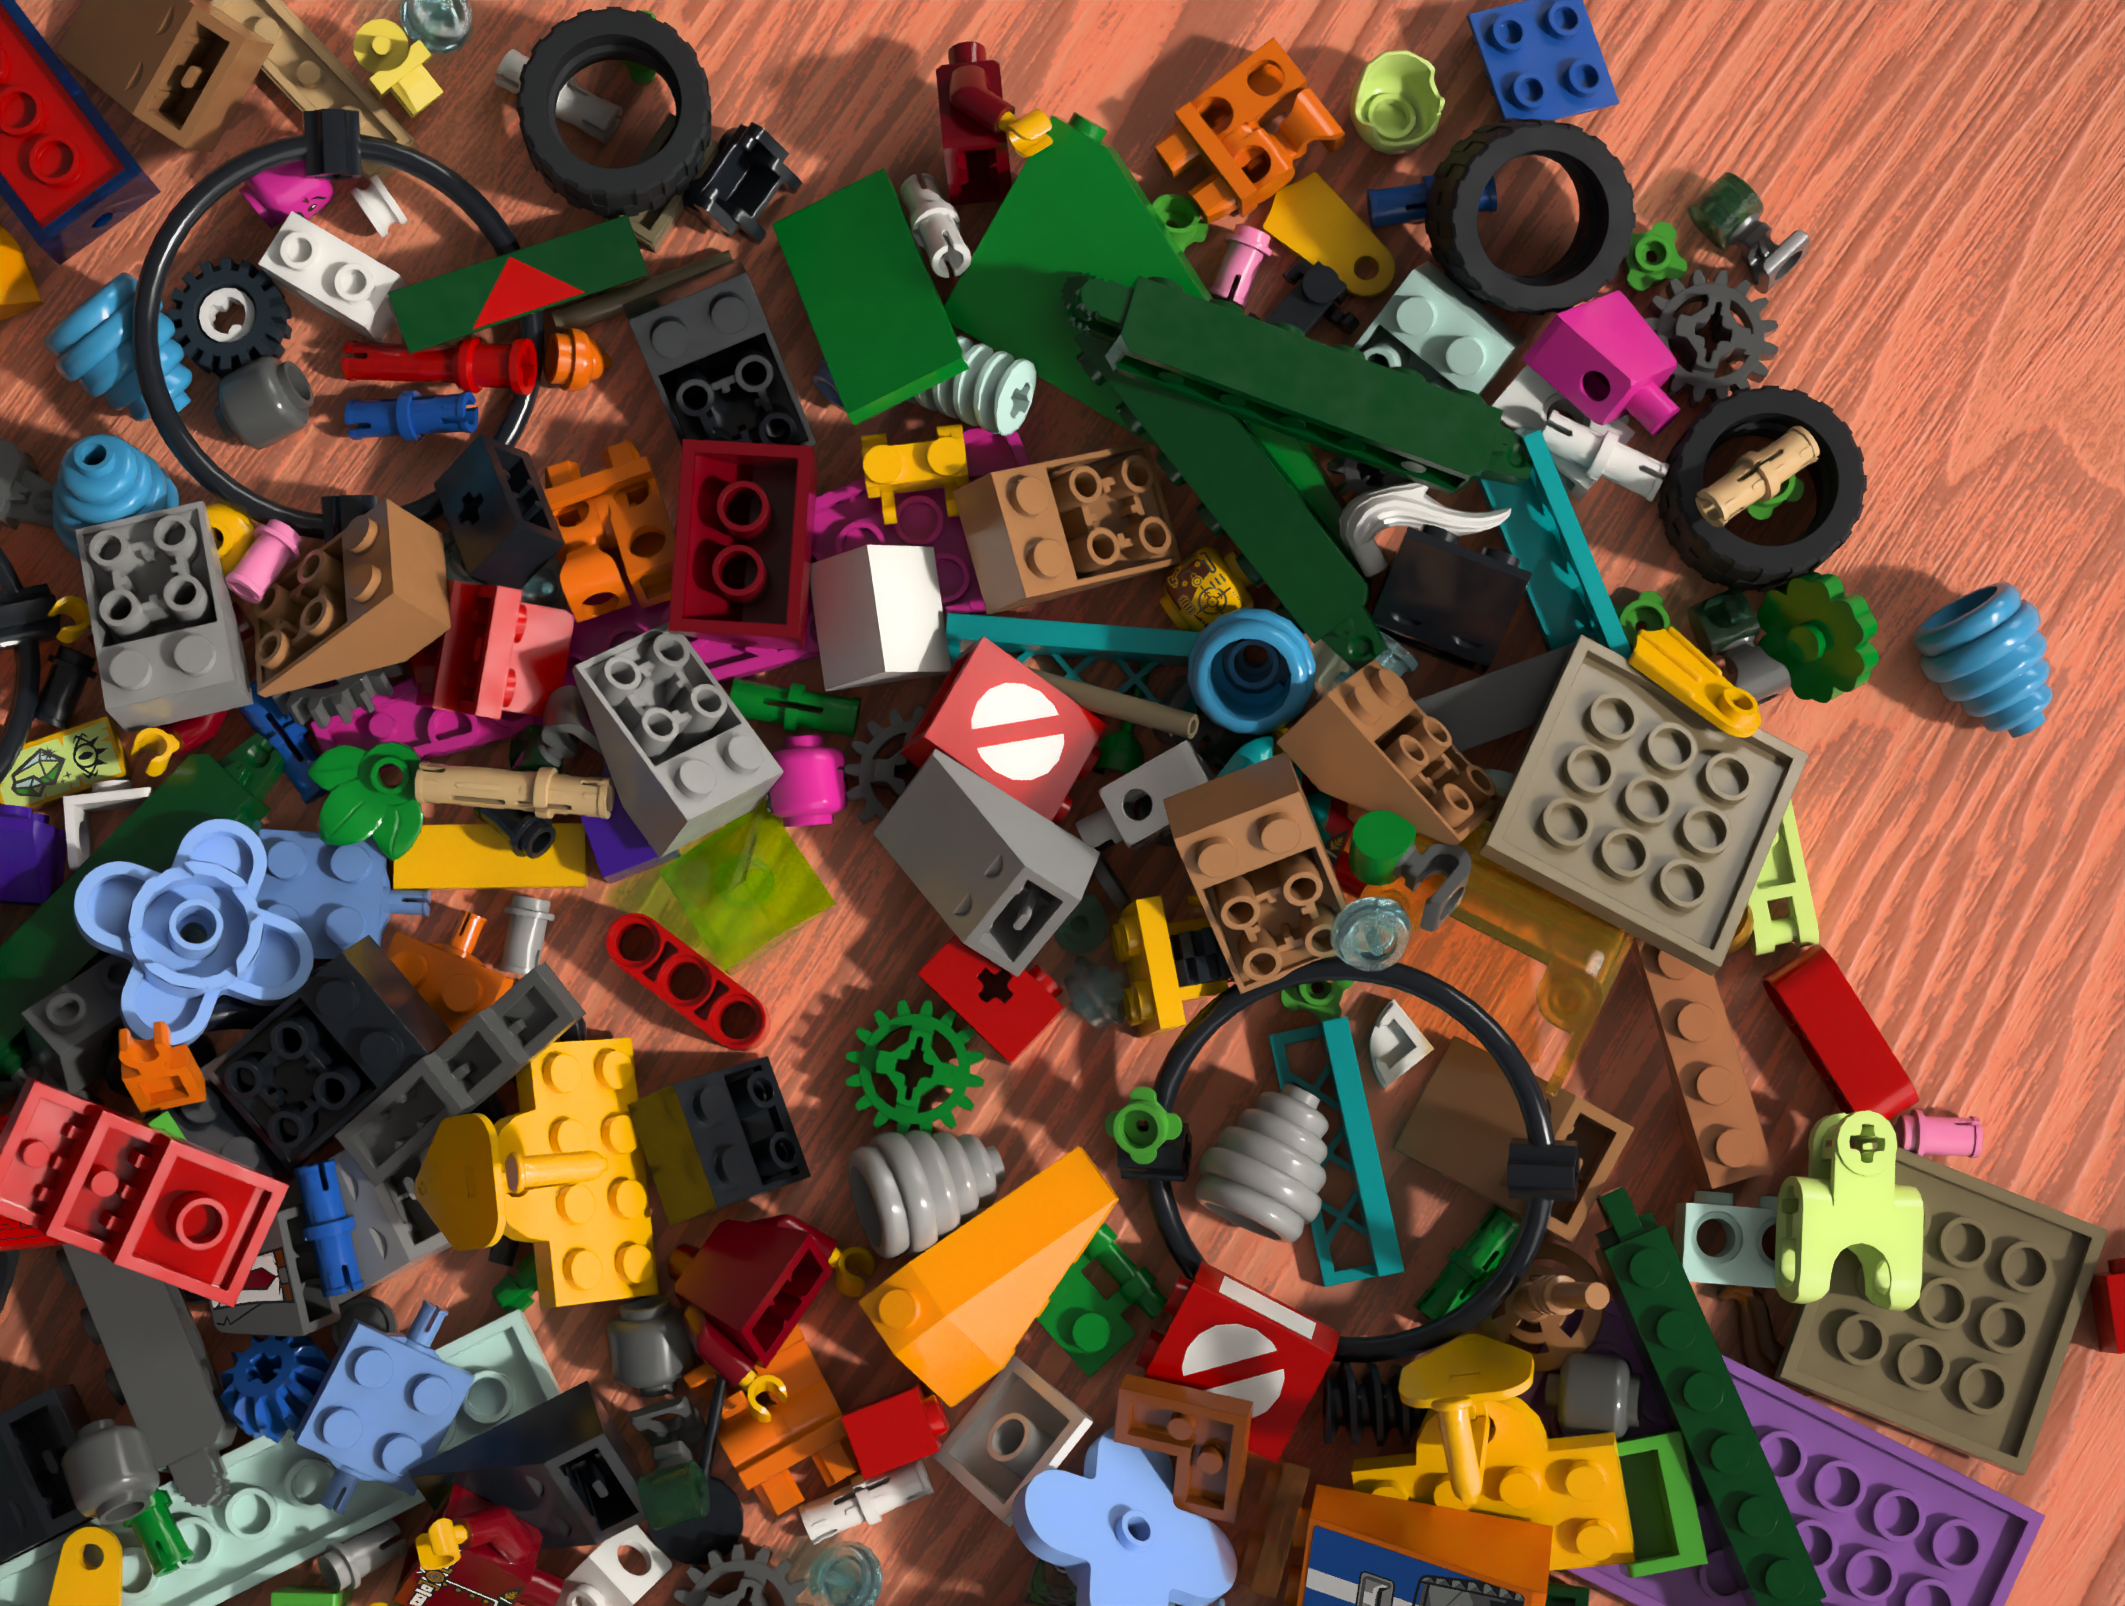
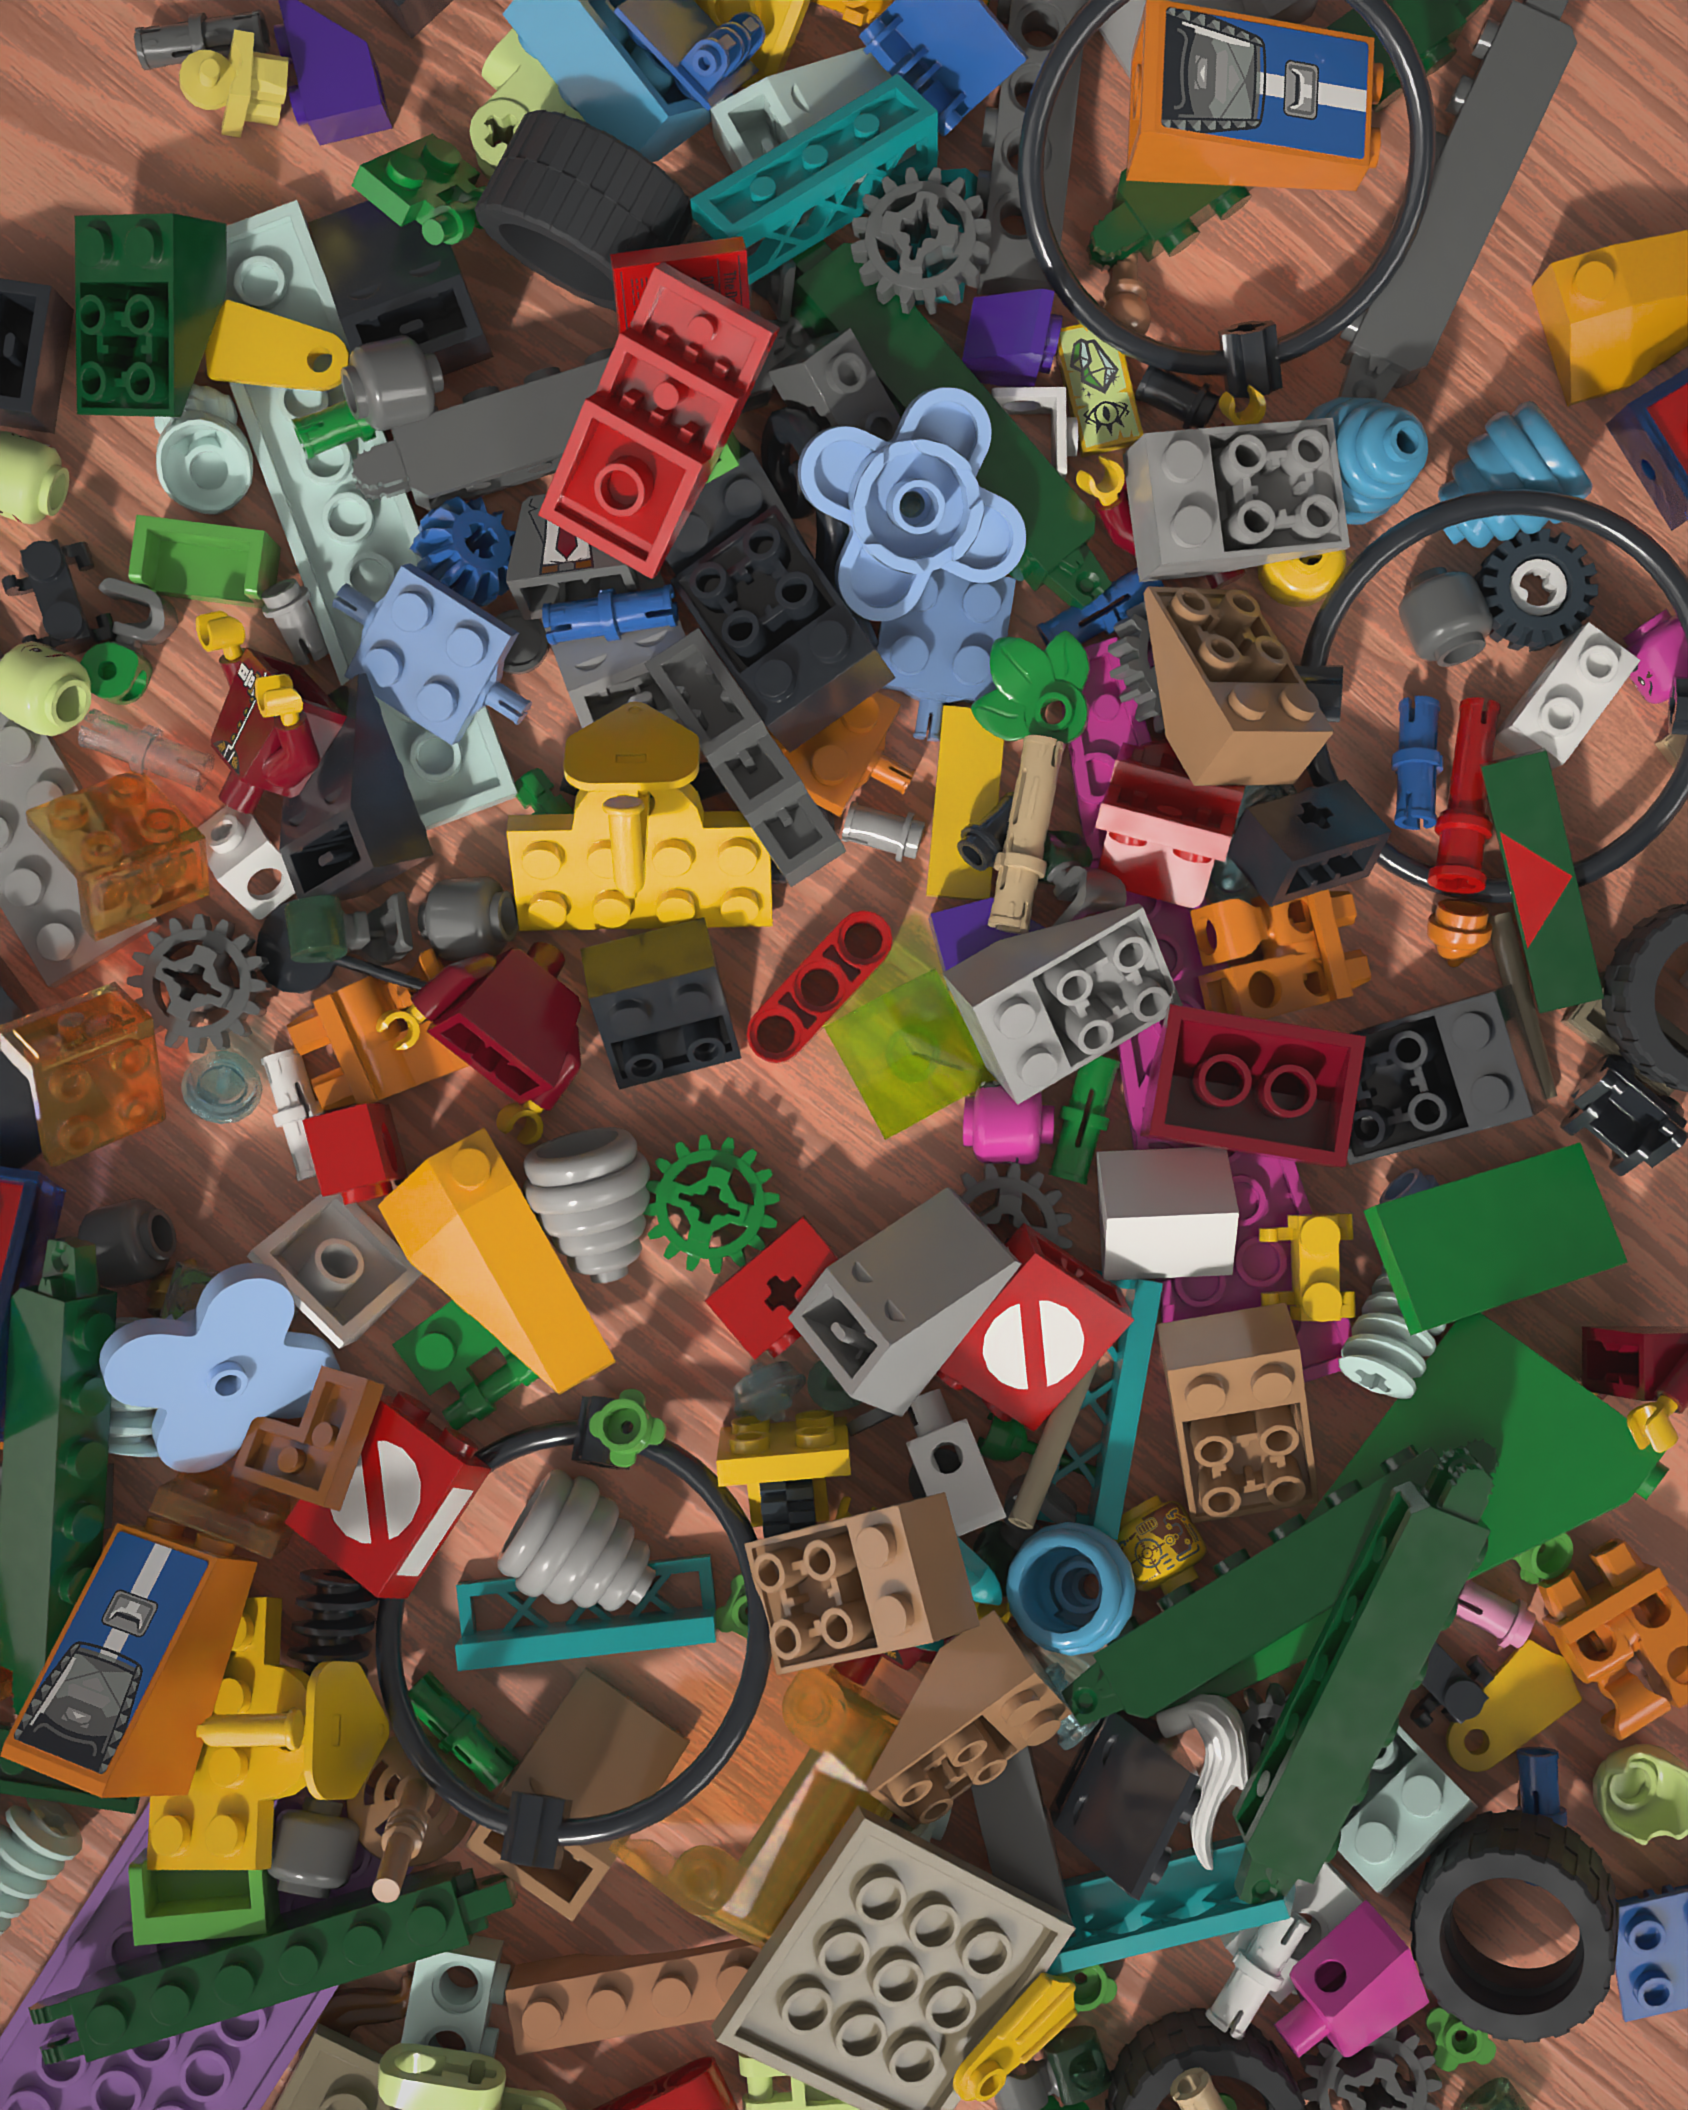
camera: 90 degrees right, 5 degrees up
(157, 1073) = (774, 459): orange plate -> none
(264, 560) = (1283, 604): bright pink pin -> none
(379, 206) = (1636, 748): white bush -> none
(935, 225) = (1563, 1310): white pin -> none
(1371, 933) = (786, 1688): clear light blue hat -> none
(1386, 849) = (871, 1714): leg -> none
(1395, 1044) = (687, 1680): white tile -> none

